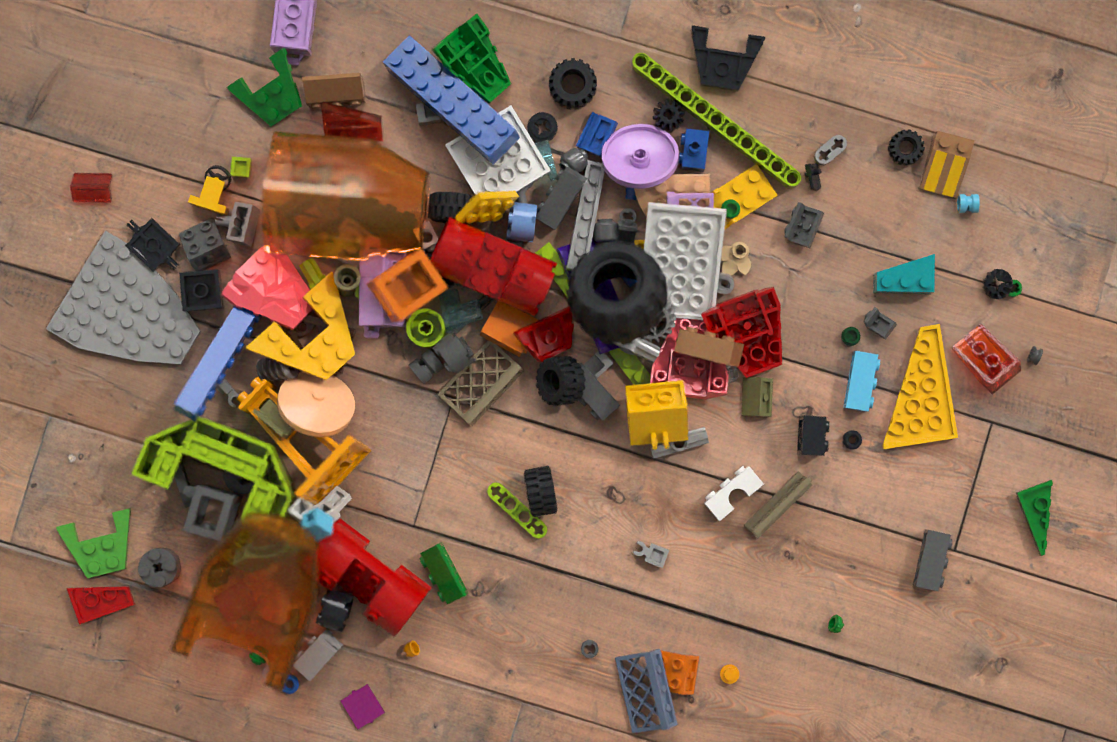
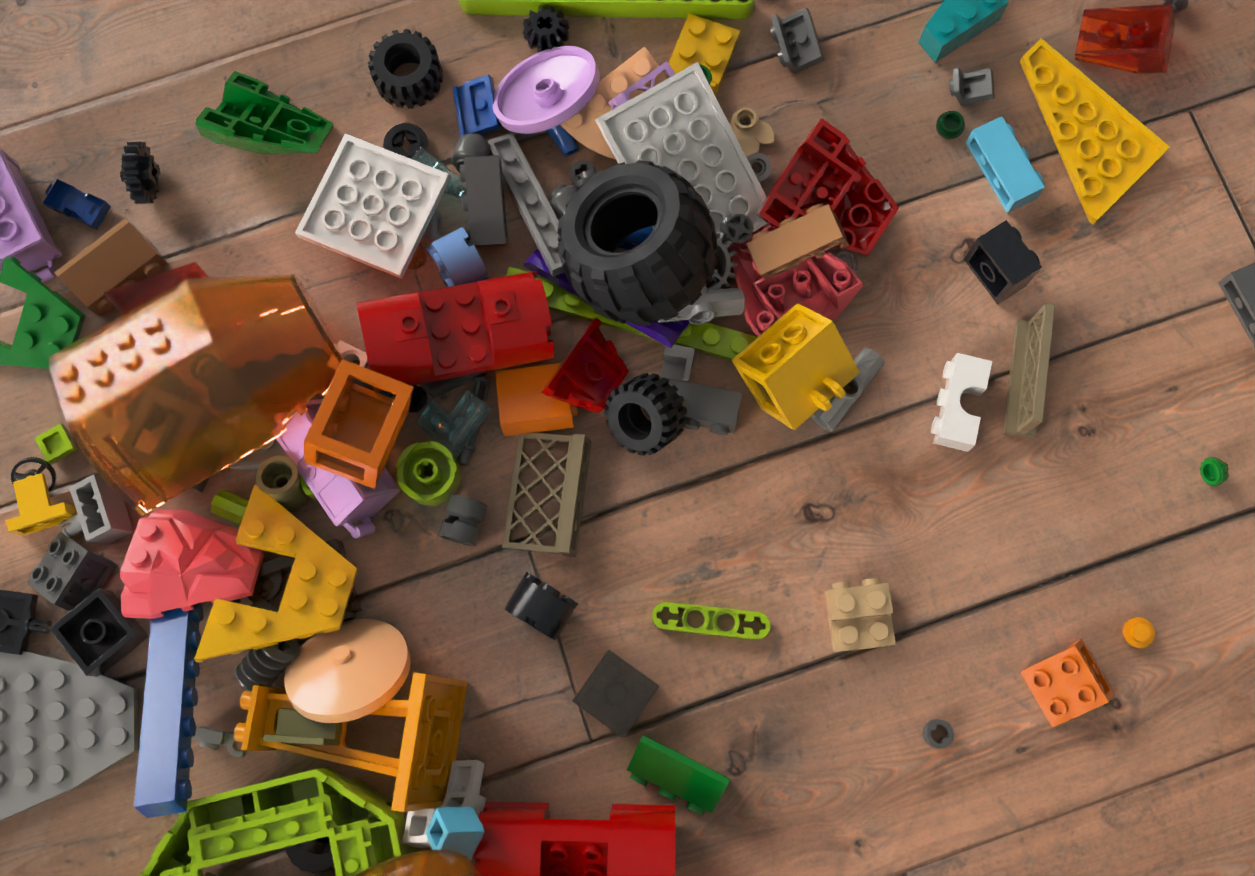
camera: 30 degrees left, 10 degrees down
(334, 25) = (84, 207): none -> blue piece
(384, 43) = (140, 172): none -> black gear
(426, 115) = (256, 223): light grey panel -> none
(435, 441) = (540, 606): none -> black brick
(442, 512) = (616, 693): none -> clear smoke brick
(446, 205) = (340, 298): black tyre -> none
(451, 100) = (267, 175): brick -> none
(455, 352) = (485, 474): dark grey brick -> none
(487, 206) = (396, 262): yellow plate -> none
(540, 491) = (724, 571): black tyre -> none
(595, 563) = (860, 615): none -> tan plate
(654, 554) = (924, 548): light grey plate -> none
(658, 689) = (1078, 722): sand blue fence -> none
(682, 316) = (742, 230): none -> dark grey wheel
(694, 150) = (604, 42): blue brick -> none
(757, 396) = (897, 269): olive panel -> none
(858, 439) = (1052, 232): black plate -> none

